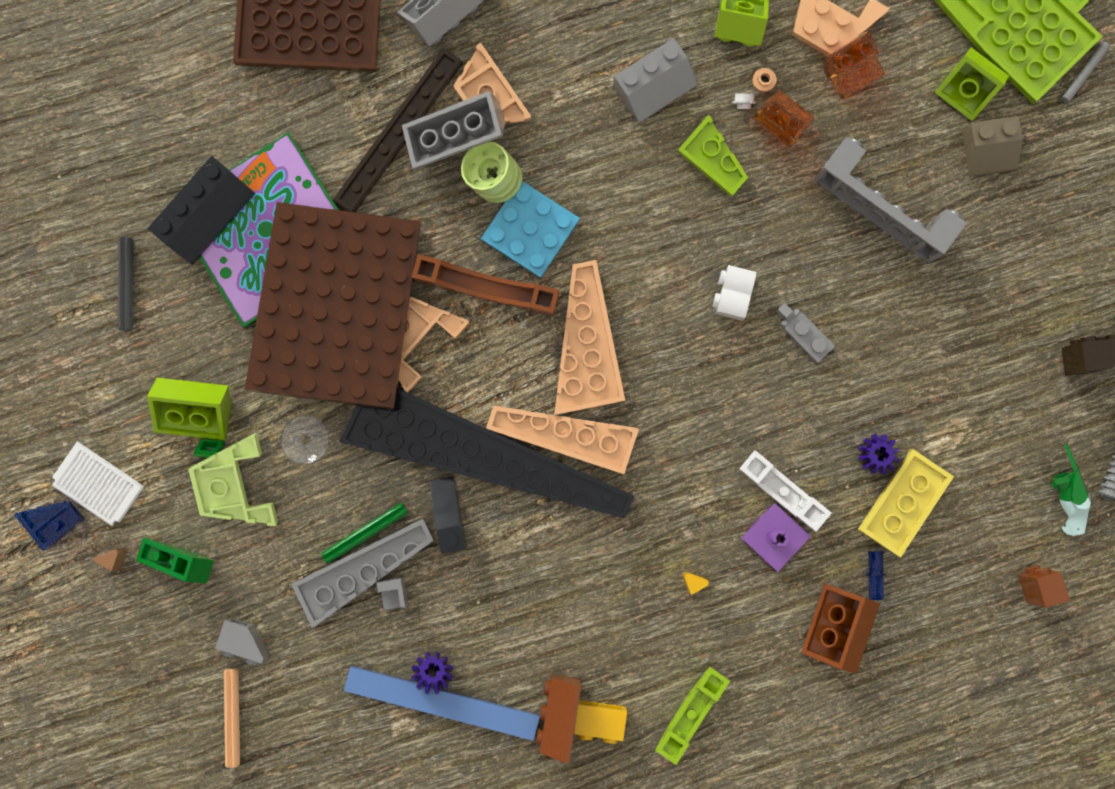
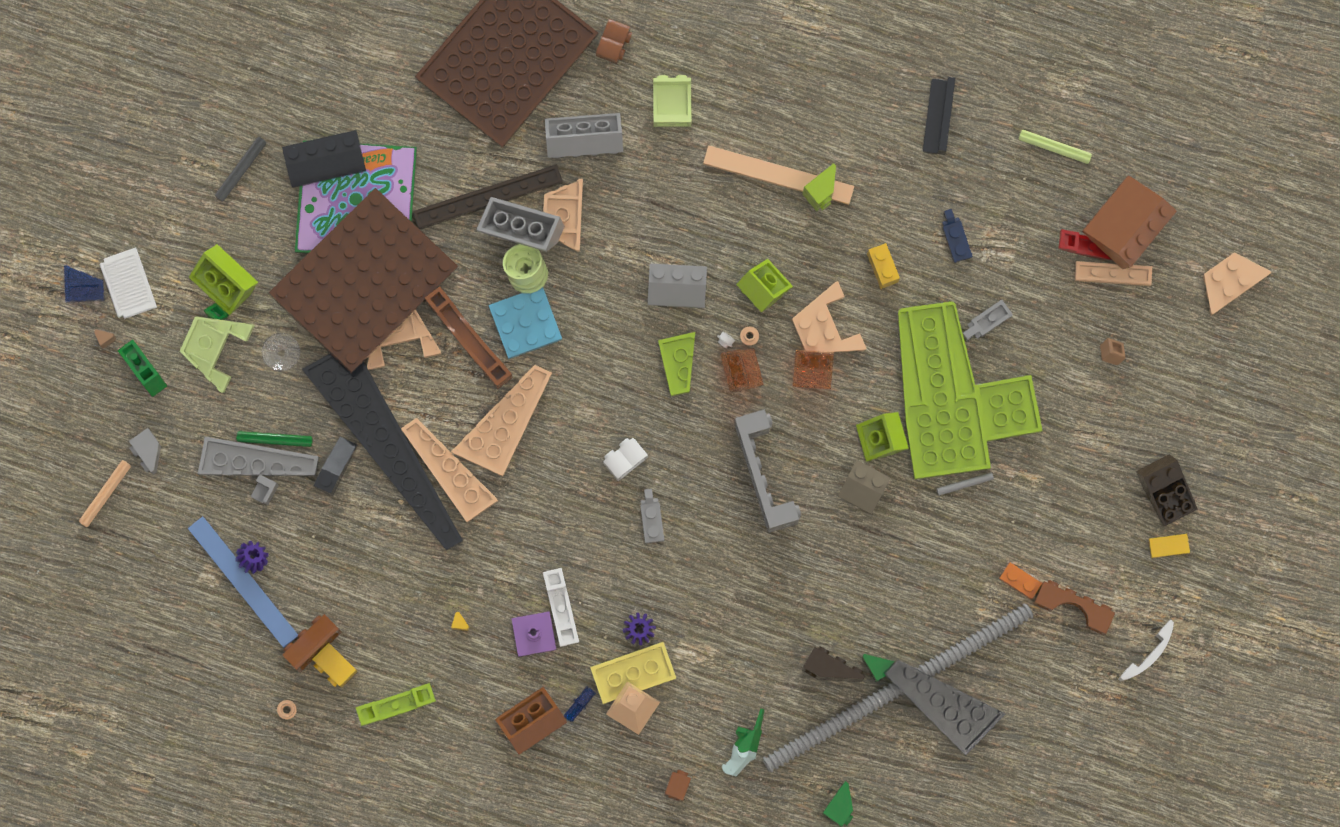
camera: 30 degrees right, 5 degrees down
(933, 539) = (633, 708): none -> light nougat slope

